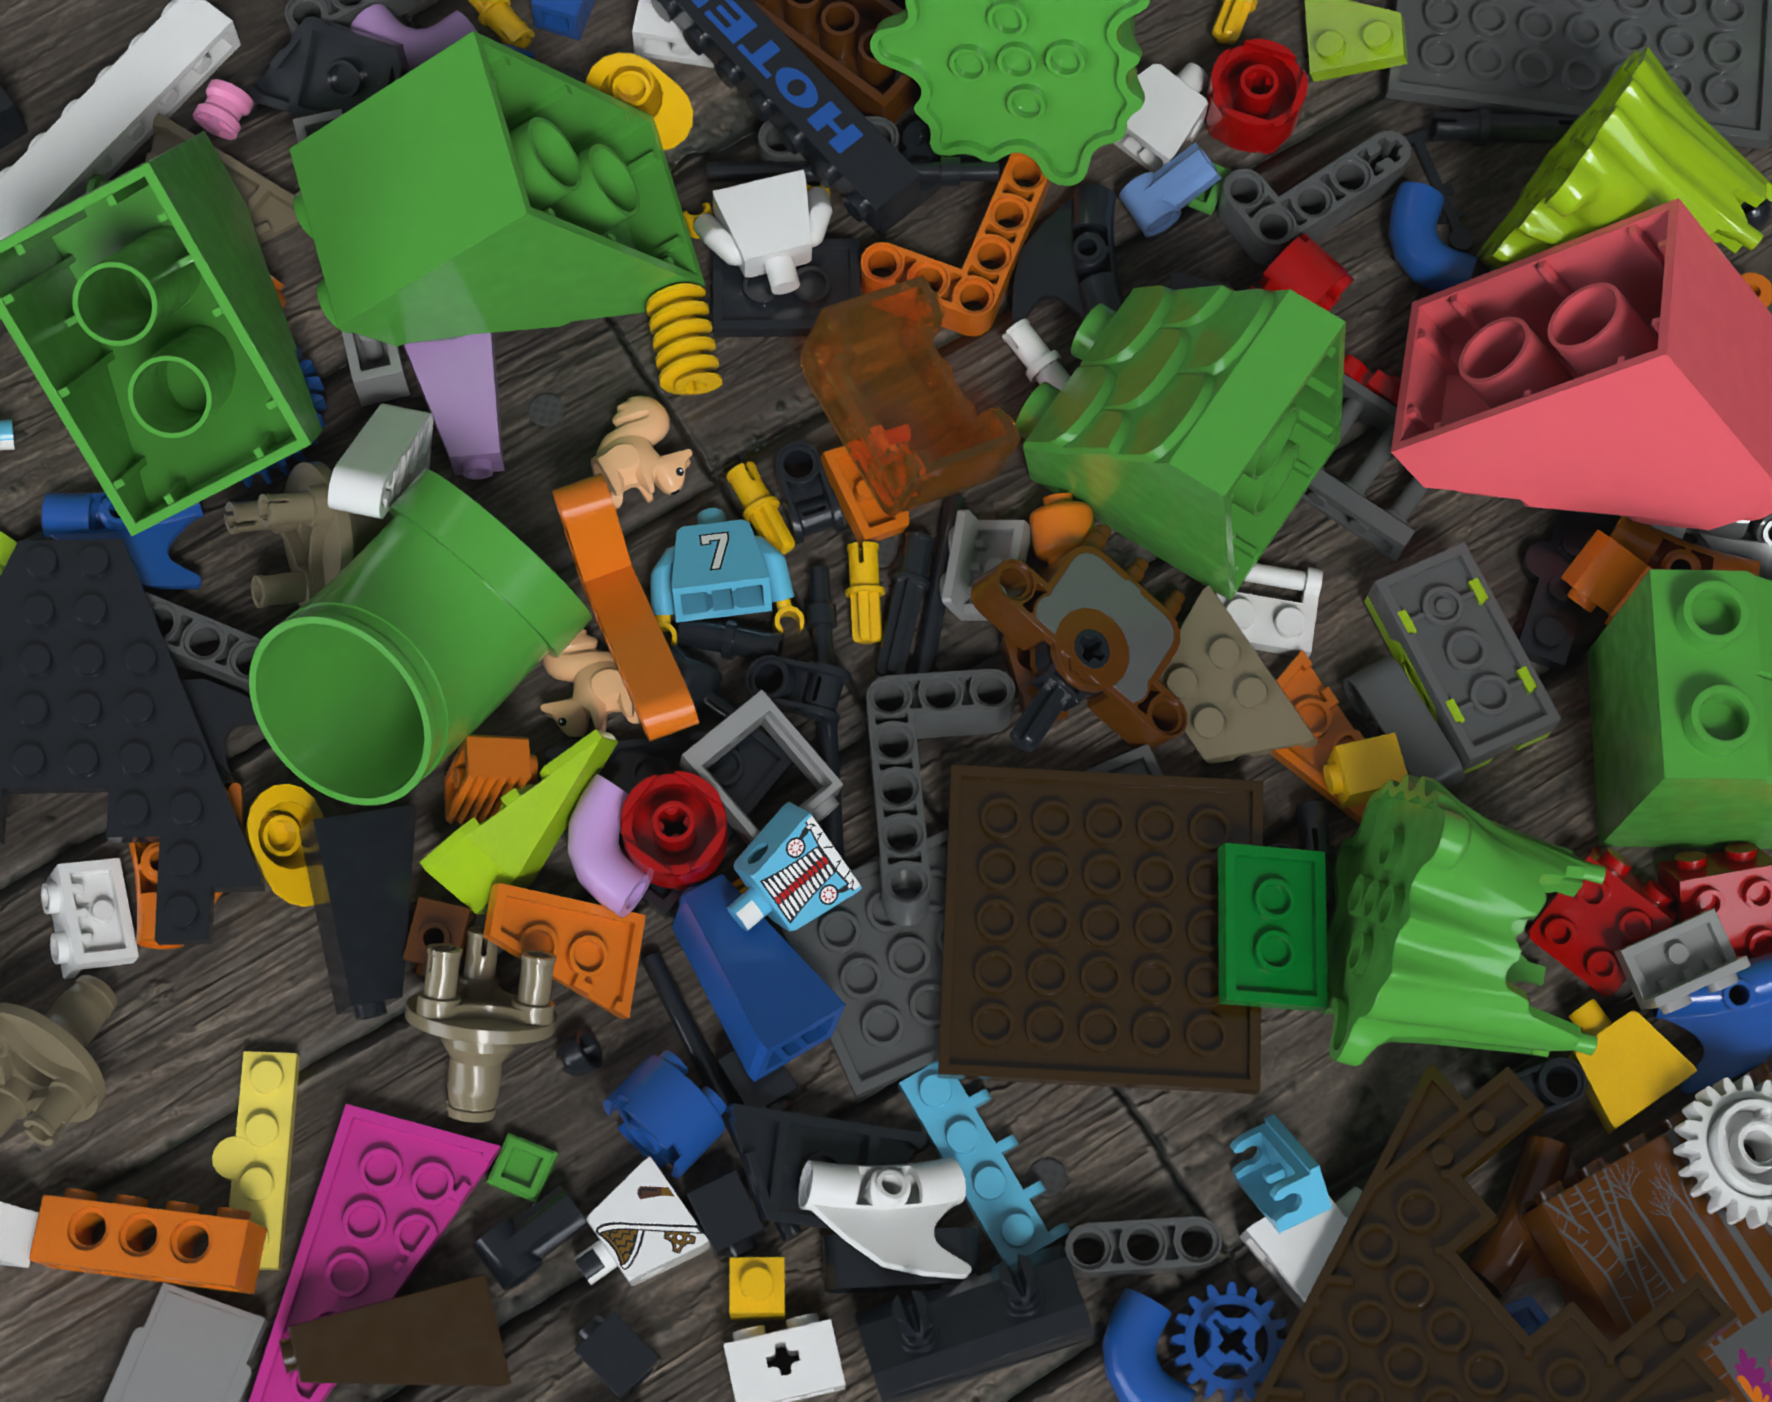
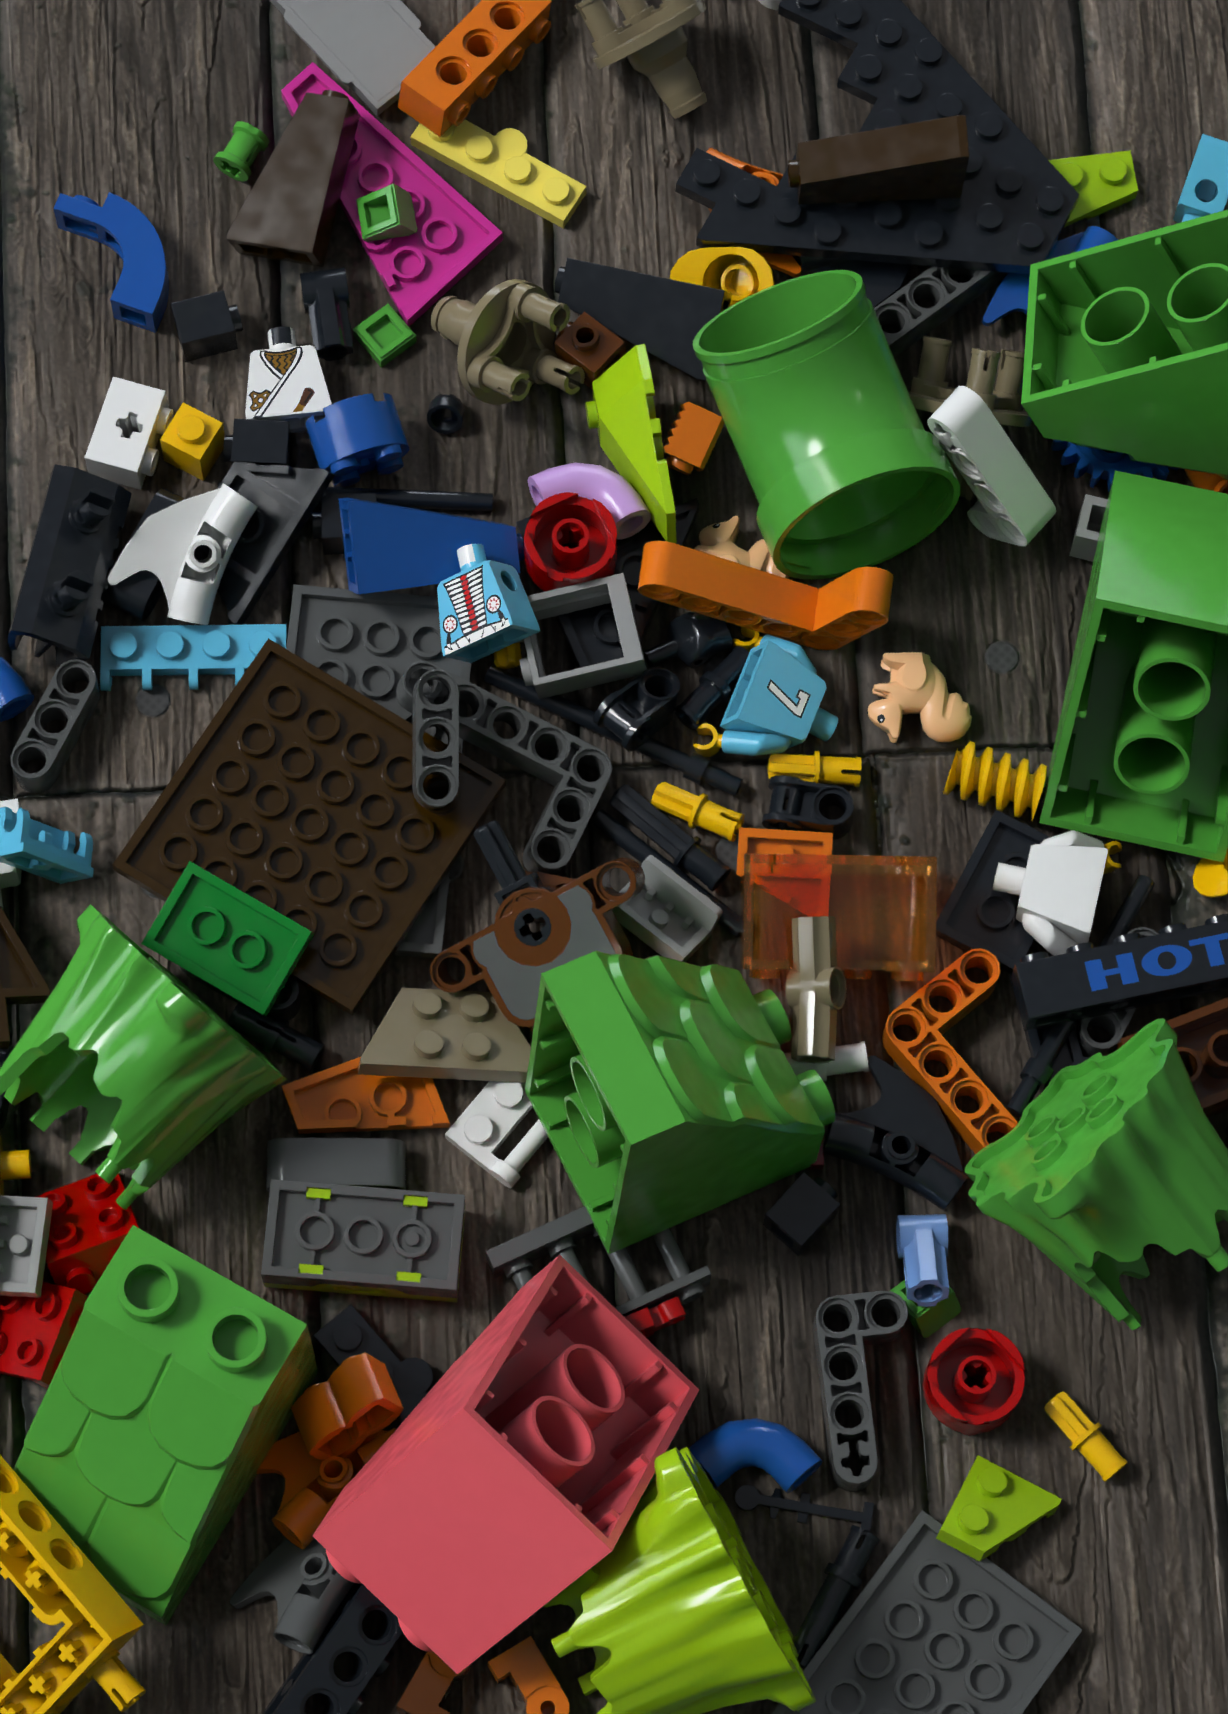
camera: 120 degrees right, 0 degrees up
(89, 916) = (752, 130): white bracket -> none
(93, 720) = (884, 164): none -> dark brown slope
(390, 1233) = (386, 214): none -> bright green slope
(463, 396) = (1031, 586): lavender slope -> none
(591, 944) = (532, 437): orange wing -> none
(949, 848) = (446, 718): none -> dark grey beam
(992, 382) = (814, 989): none -> dark tan piece
(1168, 117) = (1003, 1290): white torso -> none
(1308, 272) = (768, 1299): red brick -> none
(1362, 768) = (313, 1098): yellow brick -> none

